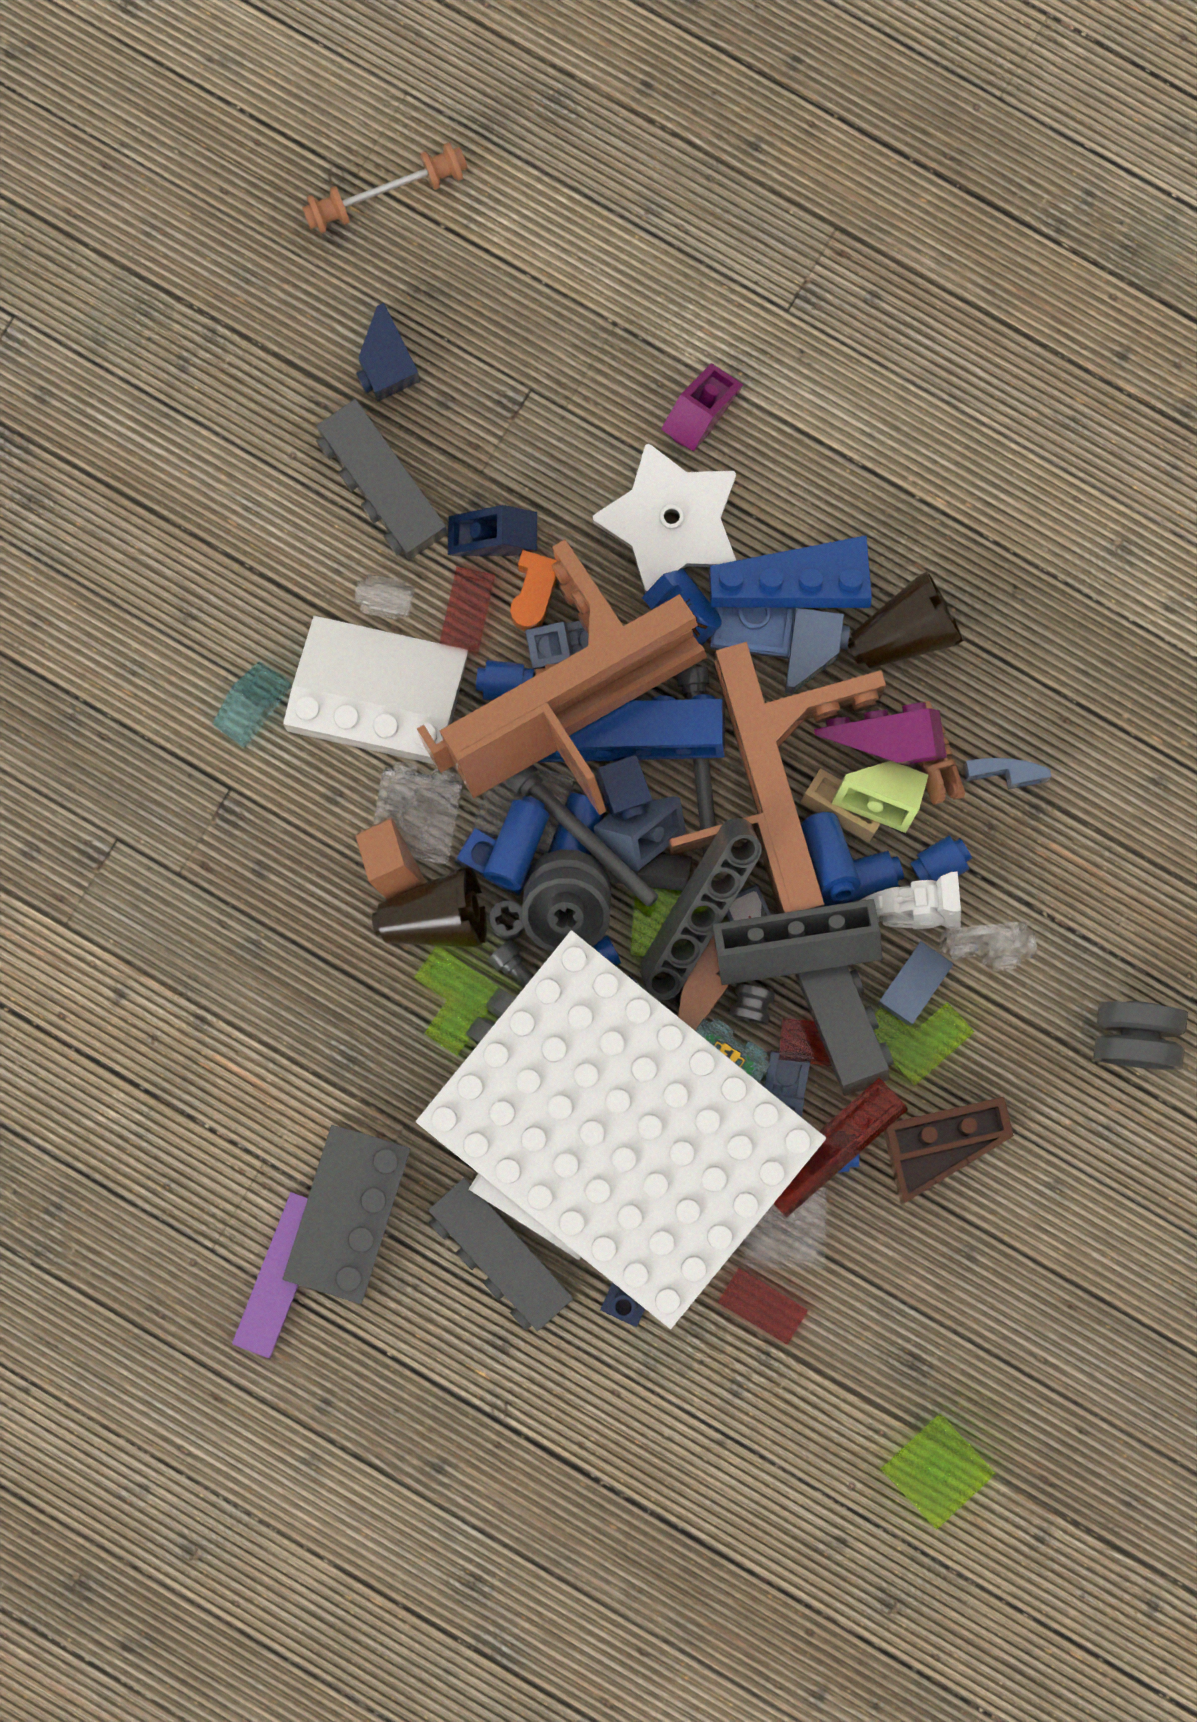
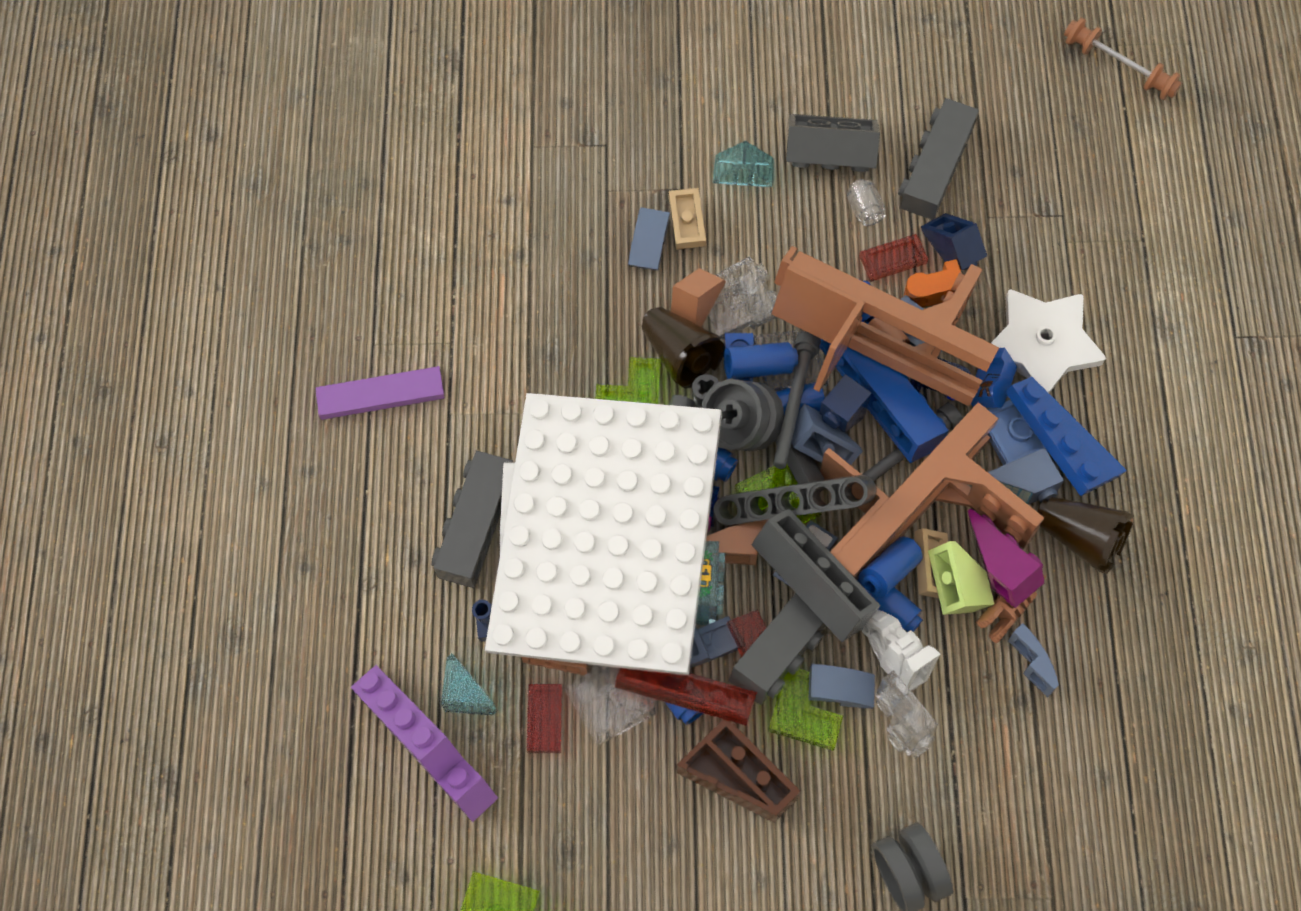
camera: 60 degrees right, 15 degrees down
(276, 865) = (649, 239): none -> sand blue slope
(278, 808) = (687, 218): none -> tan plate
(282, 582) = (832, 142): none -> dark grey slope
(346, 1214) = (444, 409): dark grey slope -> none
(373, 688) = (802, 214): white slope -> none
(385, 359) = (1017, 117): dark blue slope -> none
(686, 1375) = (462, 692): none -> clear light blue slope
(701, 407) = (1131, 315): magenta slope -> none
(715, 1446) = (425, 743): none -> medium lavender arch
(752, 1004) = (753, 583): flat silver wheel -> none
(941, 859) = (950, 656): blue brick -> none

